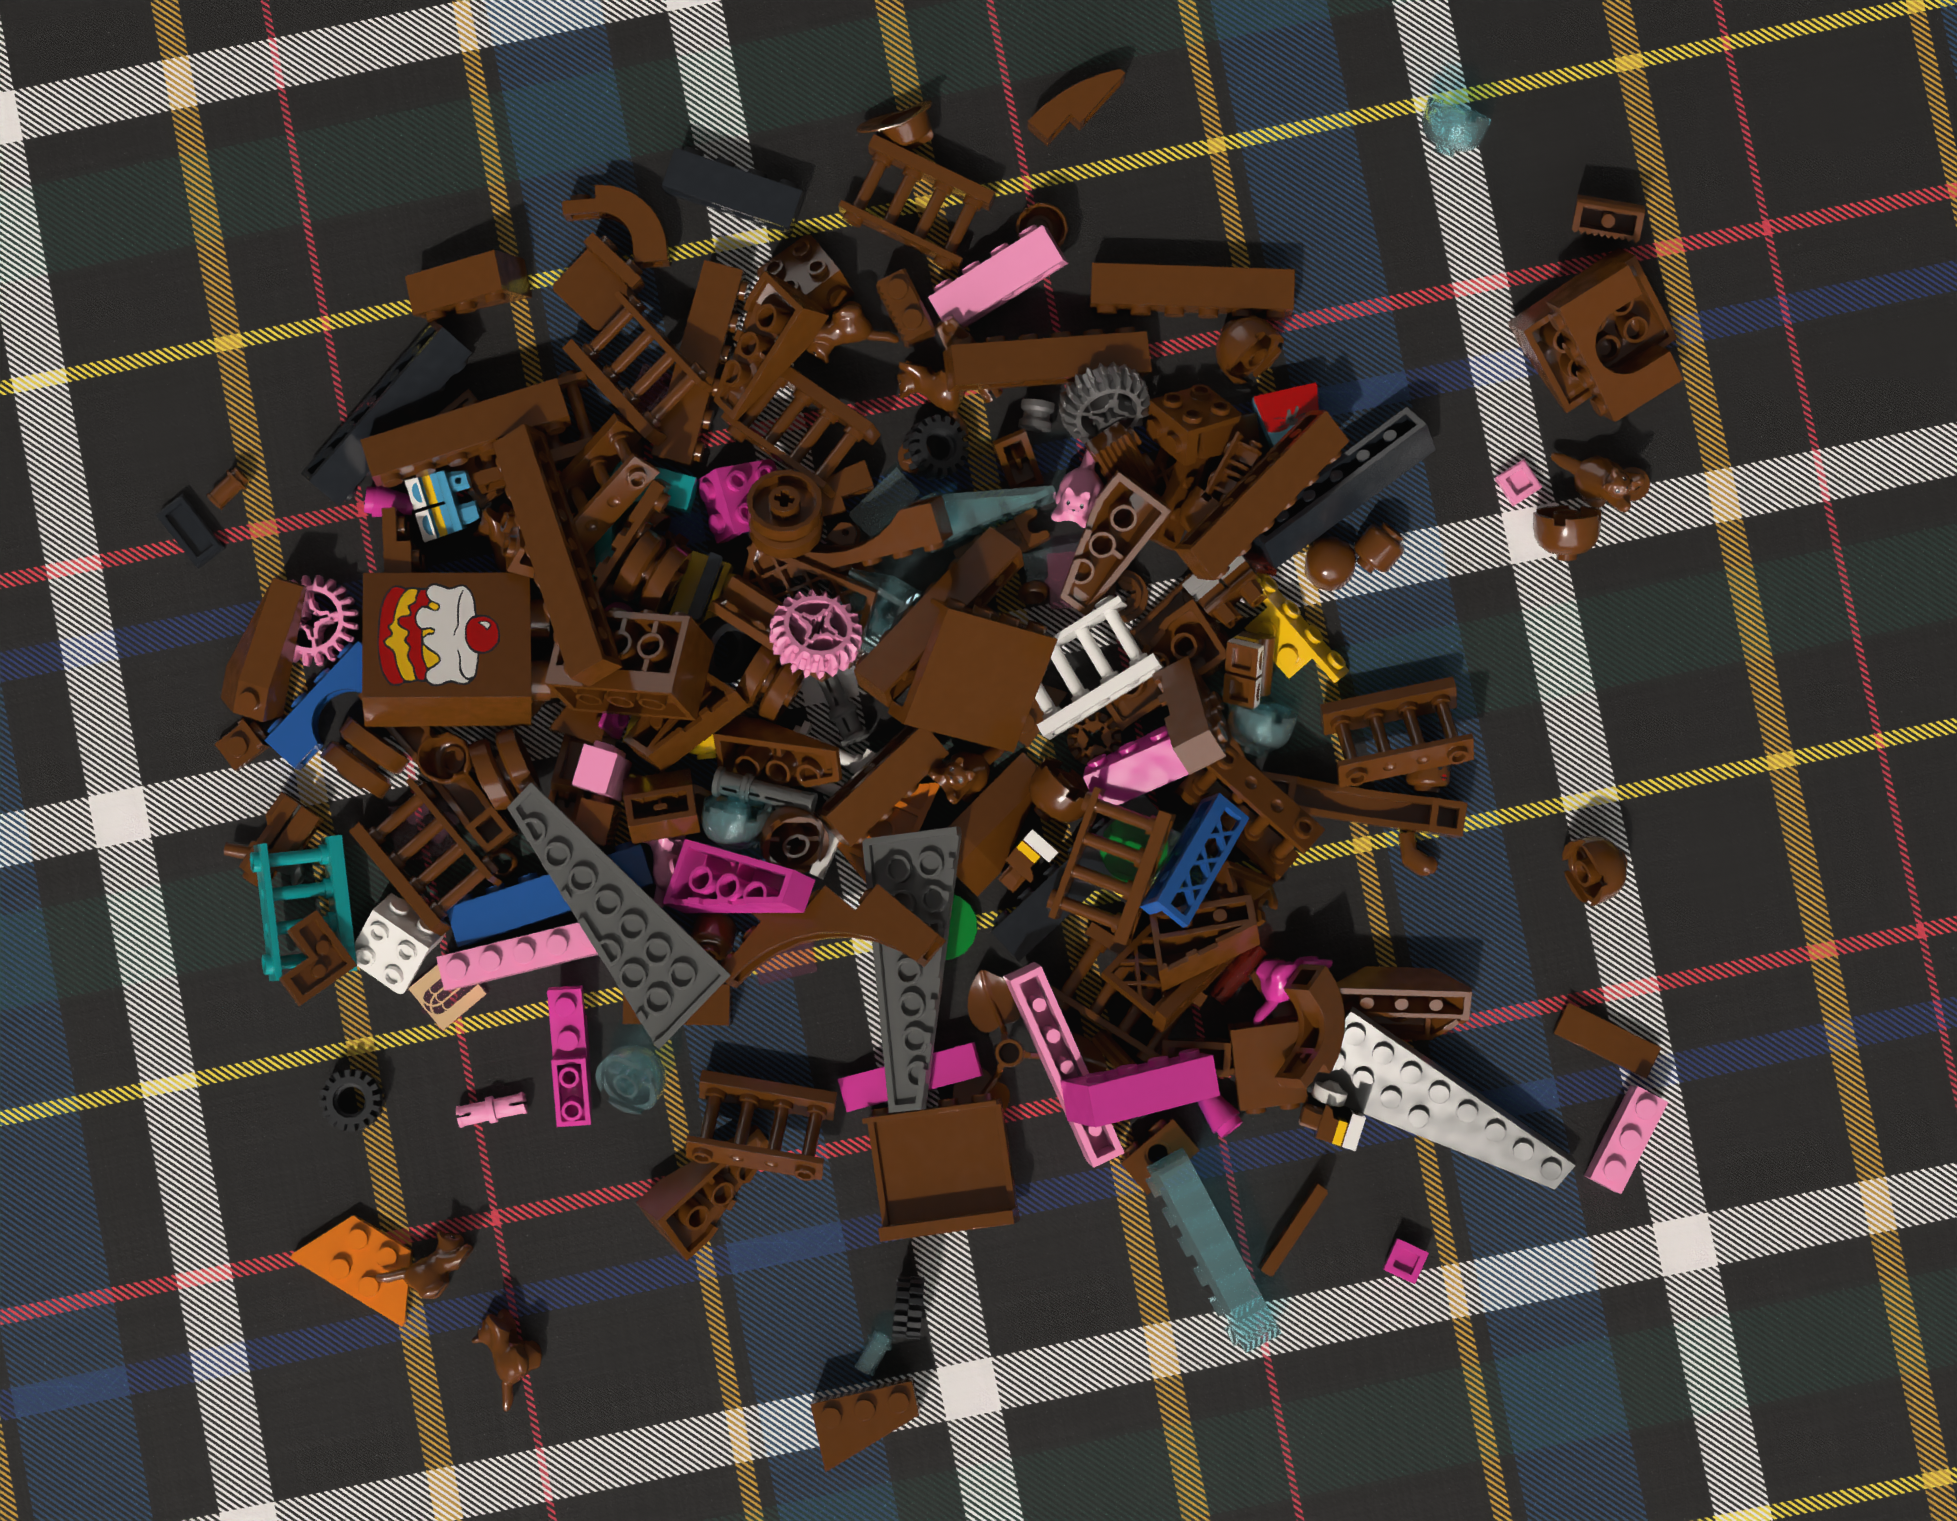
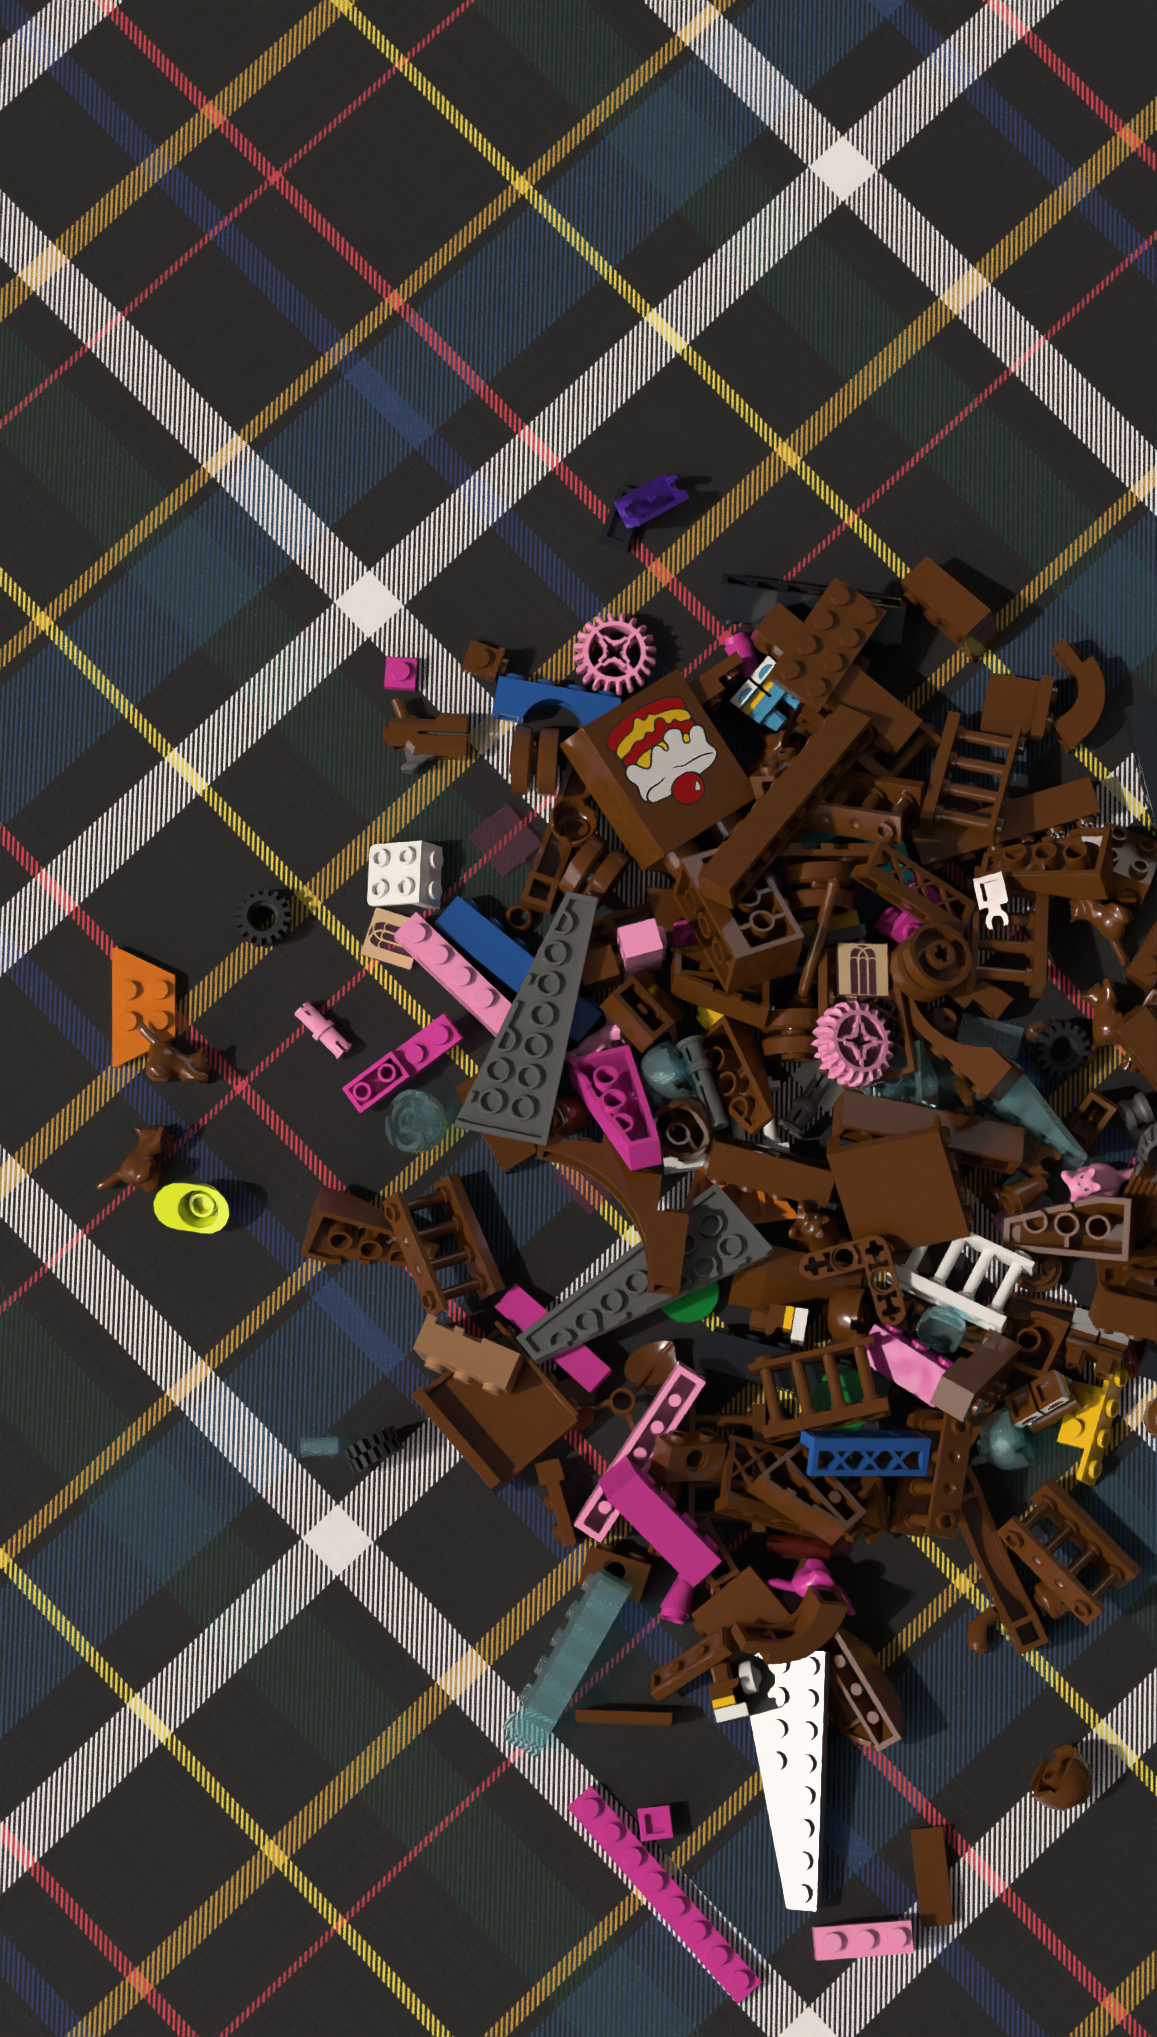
camera: 50 degrees right, 5 degrees down
(189, 496) = (650, 500): none -> dark purple hinge
(204, 829) = (400, 673): none -> dark pink plate
(228, 487) = (675, 525): reddish brown pin -> none
(263, 660) = (561, 635): reddish brown wedge -> none
(324, 960) = (356, 829): reddish brown plate -> none
(333, 887) = (418, 800): teal fence -> none
(393, 863) = (467, 834): reddish brown fence -> none
(429, 421) = (826, 644): none -> reddish brown plate
(579, 1335) = (192, 1207): none -> neon yellow piece
(711, 498) = (905, 897): none -> reddish brown fence
(741, 651) = (802, 997): none -> reddish brown piece
(752, 581) = (862, 970): none -> piece
(758, 416) = (992, 894): none -> plate
(861, 1417) = (263, 1467): reddish brown wedge -> none
(878, 1167) = (468, 1356): none -> medium nougat wedge
(929, 560) = (966, 1096): none -> reddish brown arm
(1017, 752) = (863, 1260): none -> reddish brown beam
(1033, 1157) = (550, 1476): none -> reddish brown plate
(1048, 567) = (1021, 1195): none -> reddish brown cone
(1097, 1024) = (688, 1456): none -> reddish brown brick
(1124, 717) = (941, 1328): none -> clear light blue hair
(1285, 1138) = (691, 1663): none -> reddish brown tile
(1473, 1292) = (664, 1894): none -> dark pink plate

